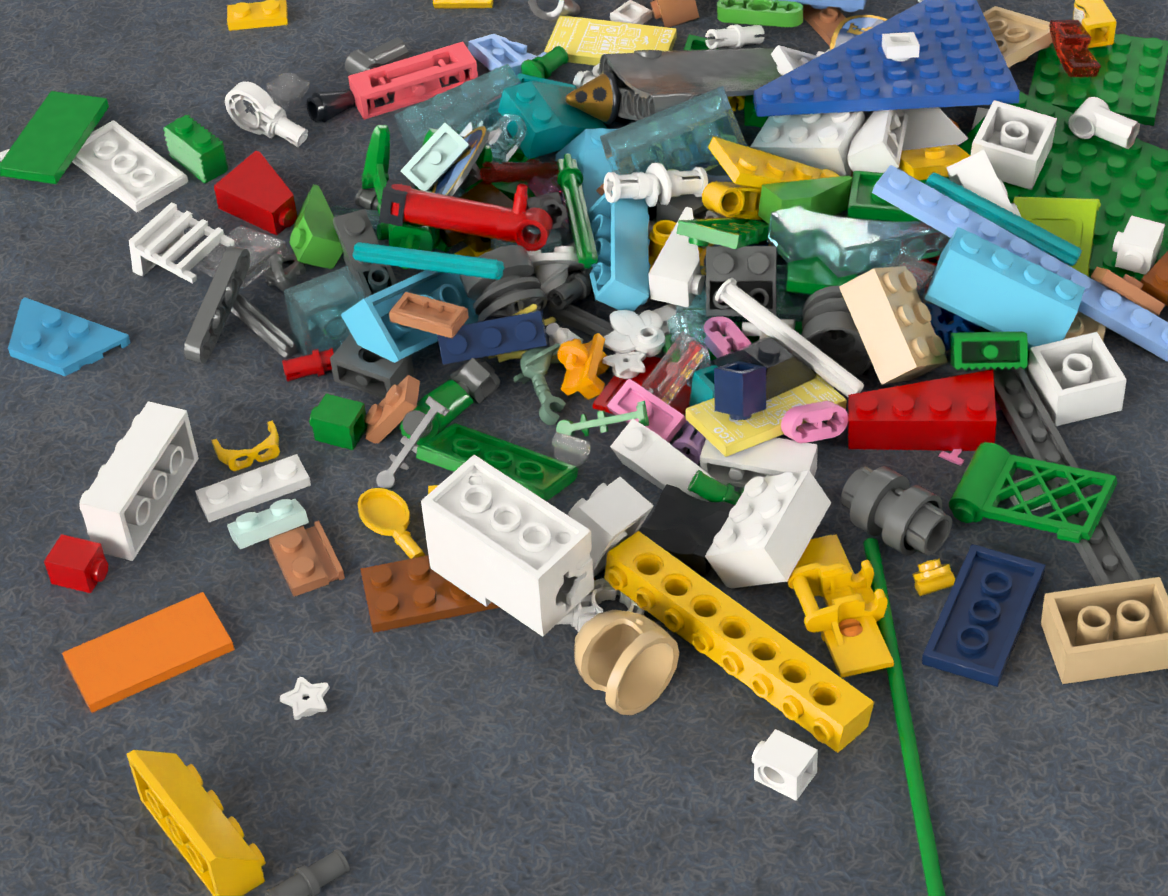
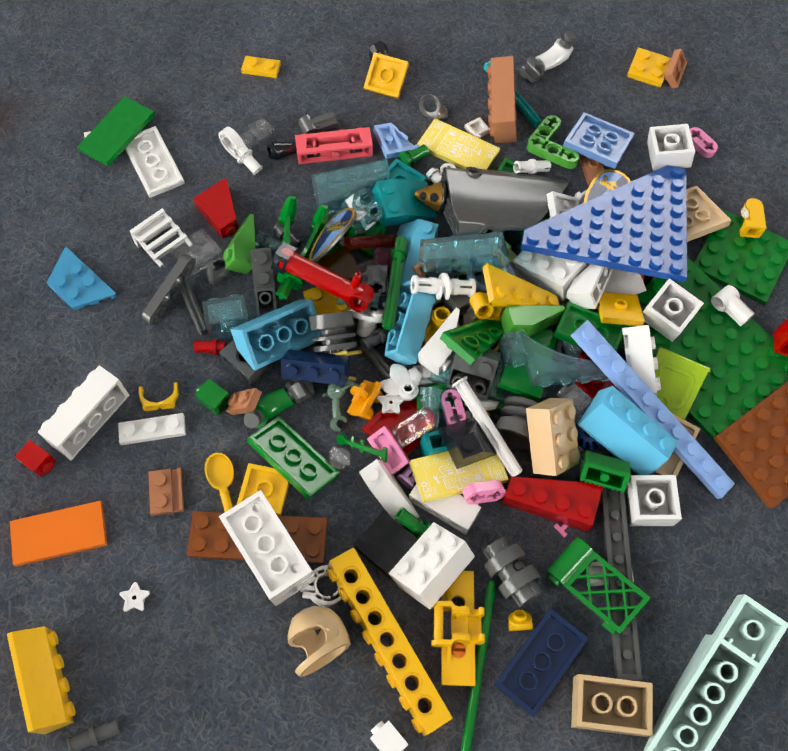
camera: 10 degrees right, 20 degrees up
(196, 148) = (193, 163): green brick -> none
(259, 526) = (151, 460): light aqua plate -> none
(387, 478) = (229, 445): piece -> none
(428, 260) = (291, 306): teal axle -> none
(428, 315) = (278, 348): nougat plate -> none
(435, 158) = (320, 224): light aqua plate -> none
(560, 335) = (359, 374): white bar -> none
(612, 516) = (331, 539): white brick -> none
(740, 389) = (443, 464): dark blue brick -> none
(900, 46) = (624, 219): white plate -> none
(1007, 220) = (646, 375): teal axle -> none
(1071, 46) = (732, 235): clear red slope -> none
(1128, 288) = (705, 441): nougat plate -> none
(1138, 245) = (723, 410): white brick -> none

